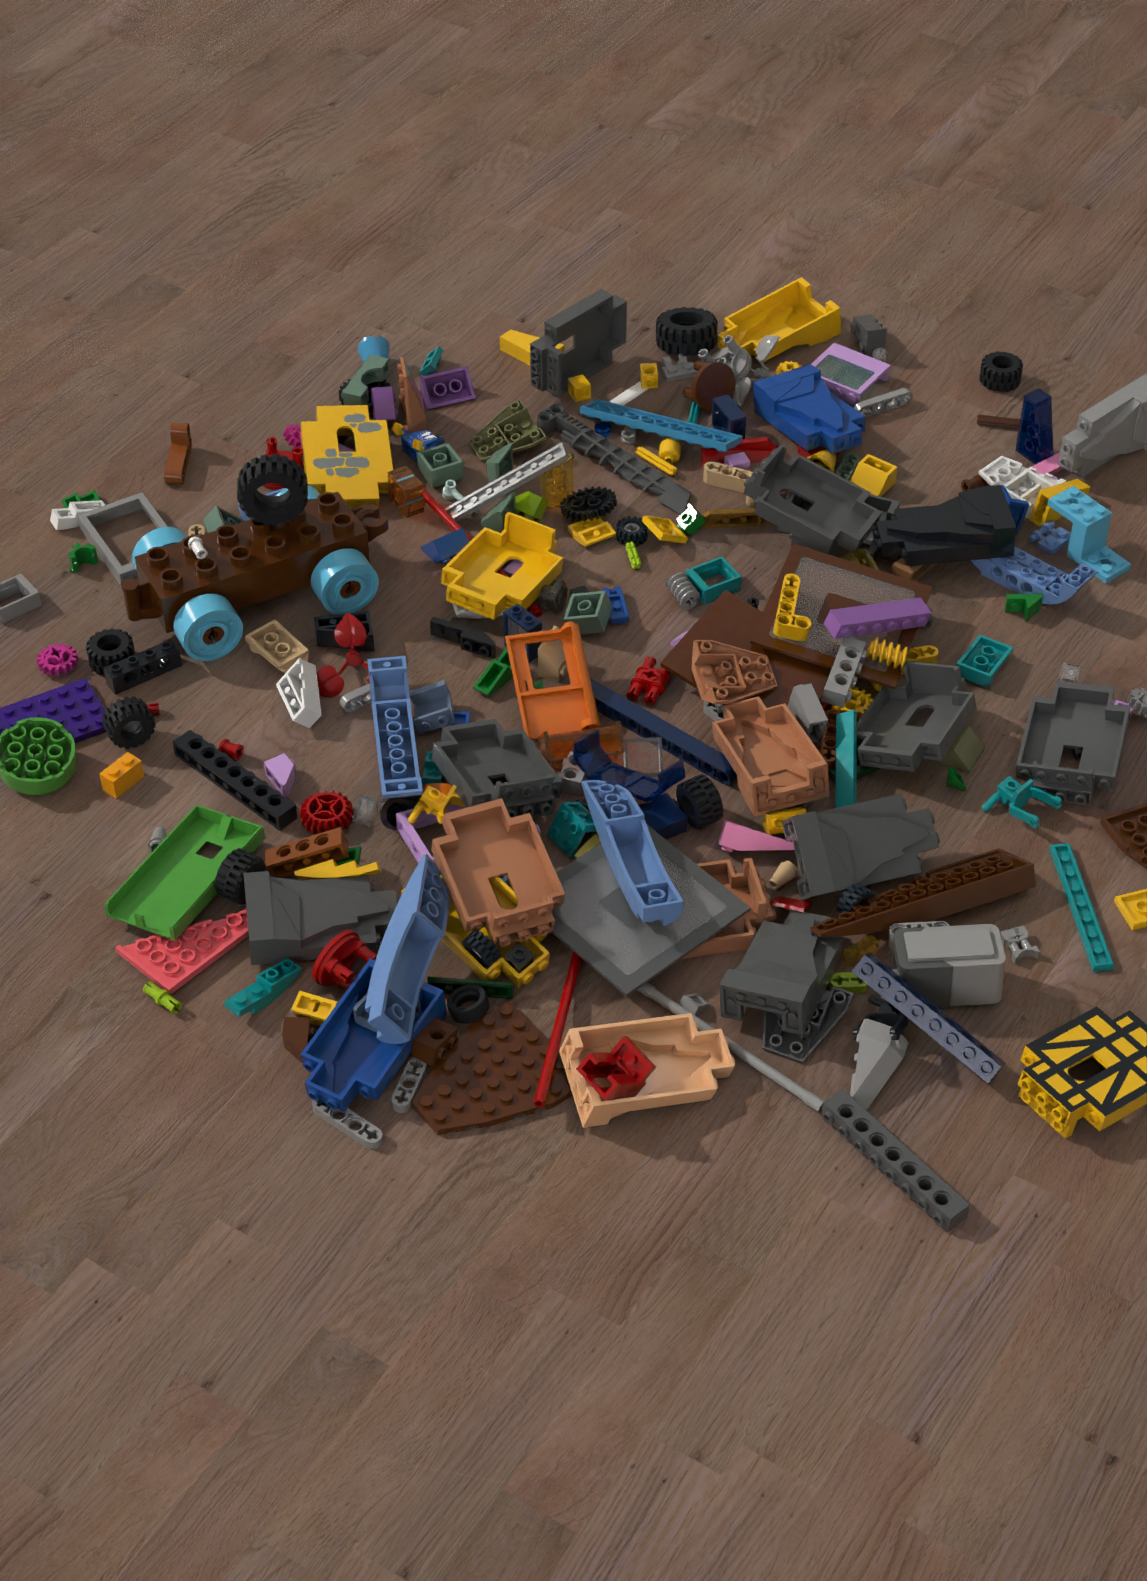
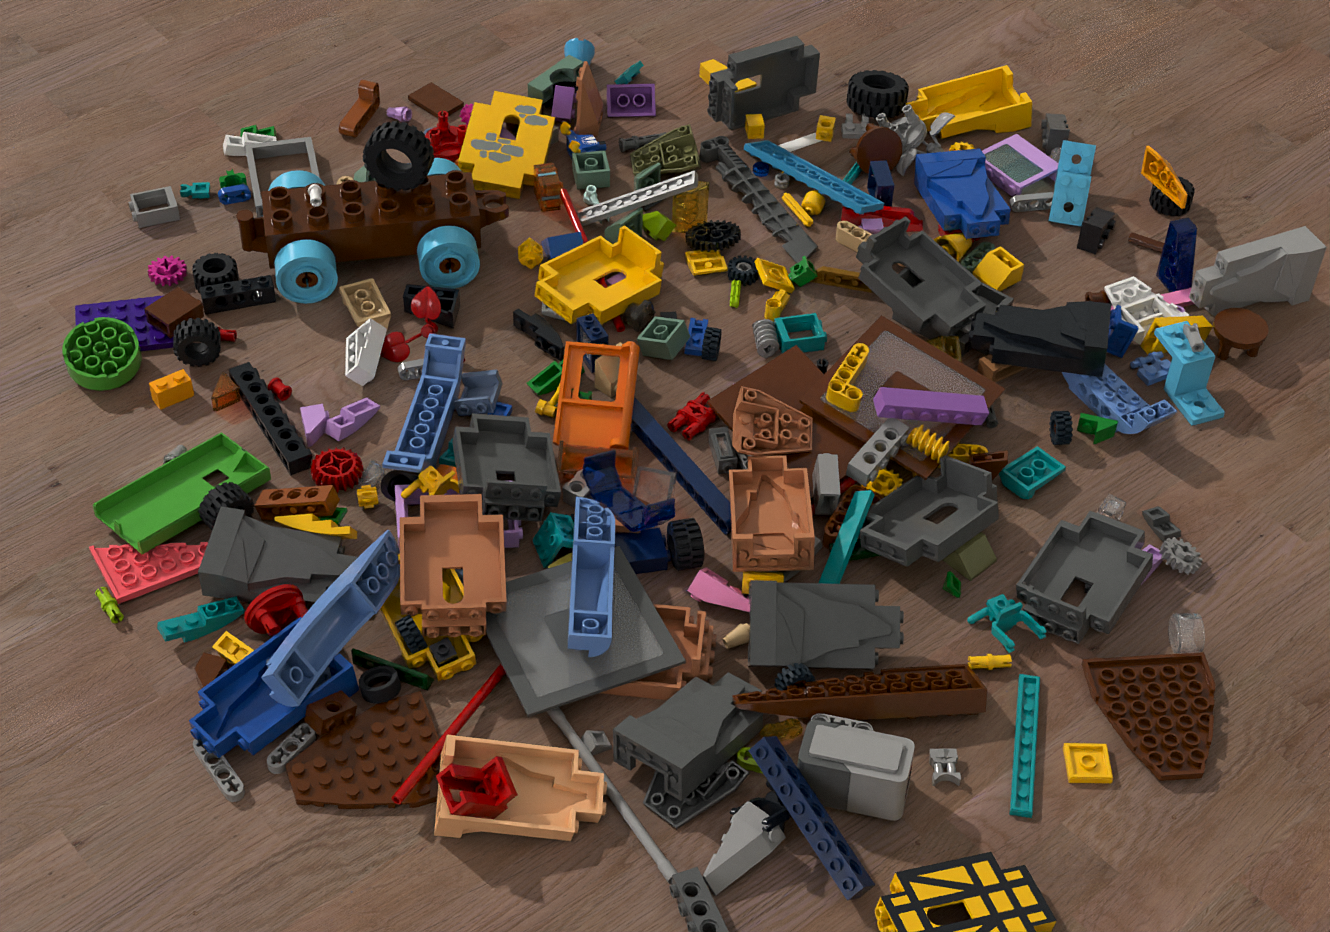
camera: 15 degrees right, 0 degrees up
(47, 571) = (197, 190): none -> teal plate
(88, 567) = (234, 194): none -> blue beam
(89, 698) = (172, 310): none -> reddish brown brick
(179, 765) = (225, 393): none -> clear orange slope
(218, 450) = (400, 113): none -> lavender cone
(248, 429) = (435, 99): none -> reddish brown tile
(316, 761) = (351, 418): none -> lavender slope
(370, 832) = (367, 496): none -> yellow gear
(418, 560) = (530, 253): none -> yellow brick
(470, 428) = (637, 142): none -> dark grey pin
(504, 706) = (548, 408): none -> yellow brick
(636, 608) = (711, 343): none -> black bush
(678, 557) = (776, 304): none -> yellow piece
(690, 707) = (722, 450): none -> dark grey window
(790, 903) = (732, 667): red piece -> none
(907, 379) = (1072, 183): none -> medium azure bracket
(946, 420) = (1096, 230): none -> black wedge
(947, 656) = (990, 461): none -> reddish brown slope
(990, 354) = (1163, 176): none -> light orange wedge
(993, 612) = (1060, 428): none -> black bush
(1019, 840) = (989, 661): none -> yellow pin
(1088, 499) = (1193, 336): none -> light grey bar
(1114, 677) = (1160, 523): none -> dark grey slope
(1118, 484) = (1239, 330): none -> reddish brown piece

